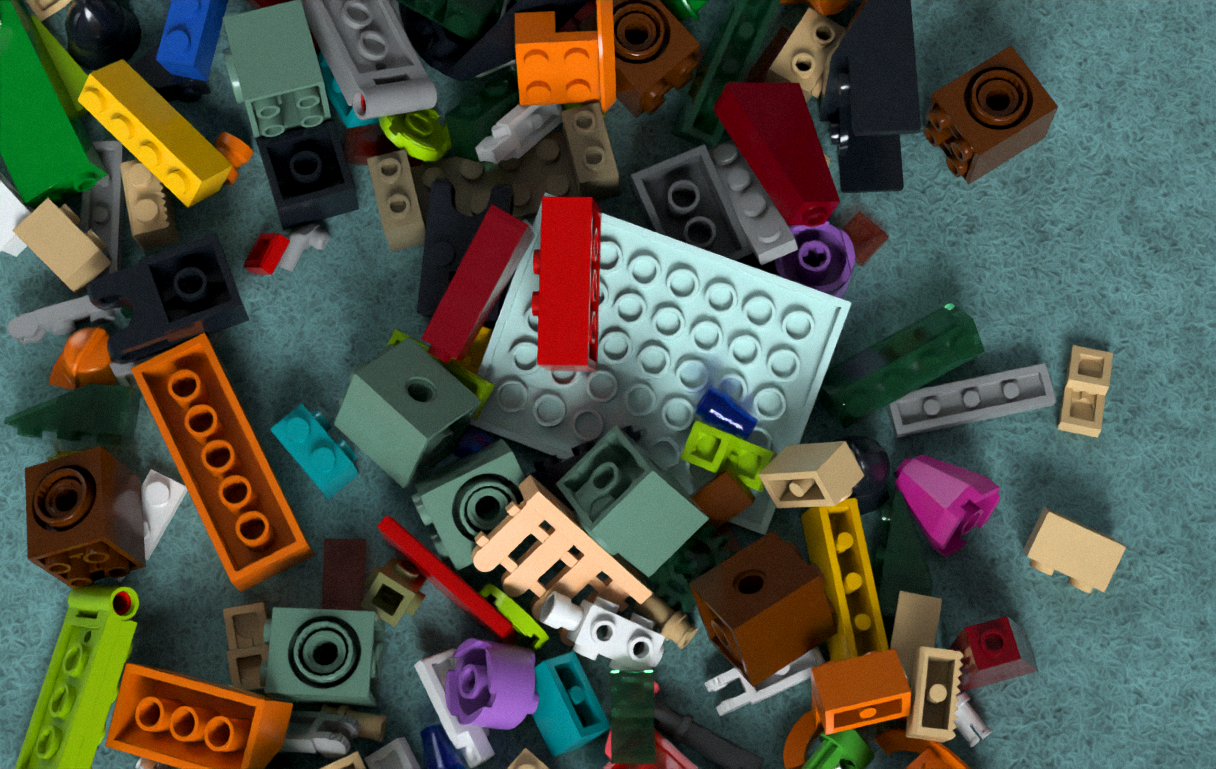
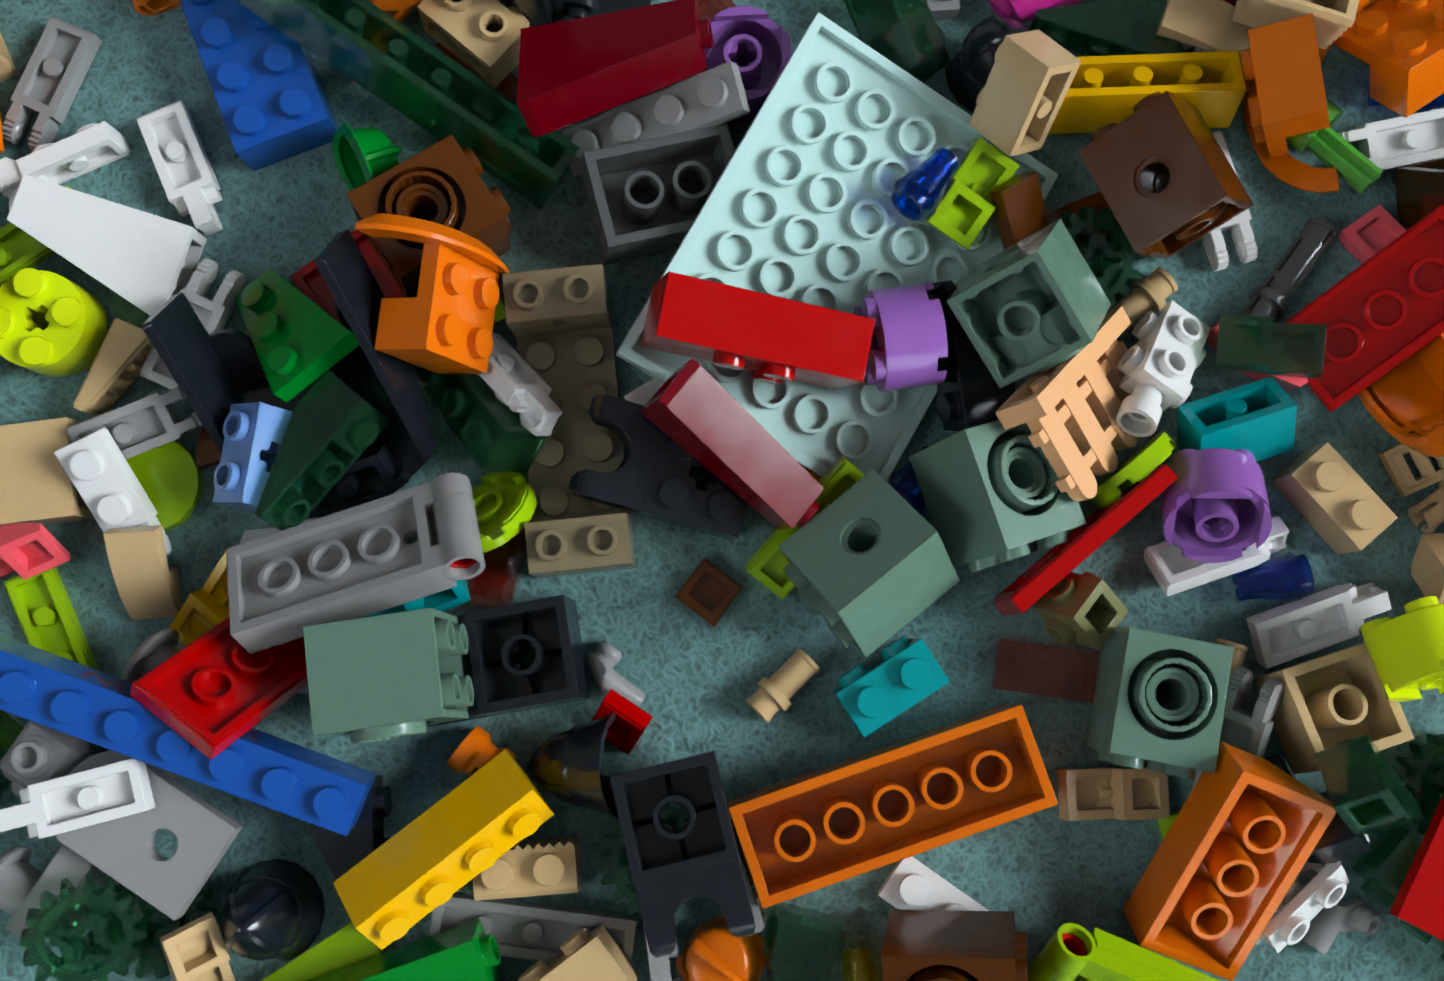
camera: 85 degrees left, 10 degrees up
(230, 212) = (573, 769): none -> black helmet
(304, 369) = (782, 685): none -> tan pin
(377, 308) = (709, 592): none -> reddish brown tile
(589, 404) = (905, 337): none -> medium lavender brick

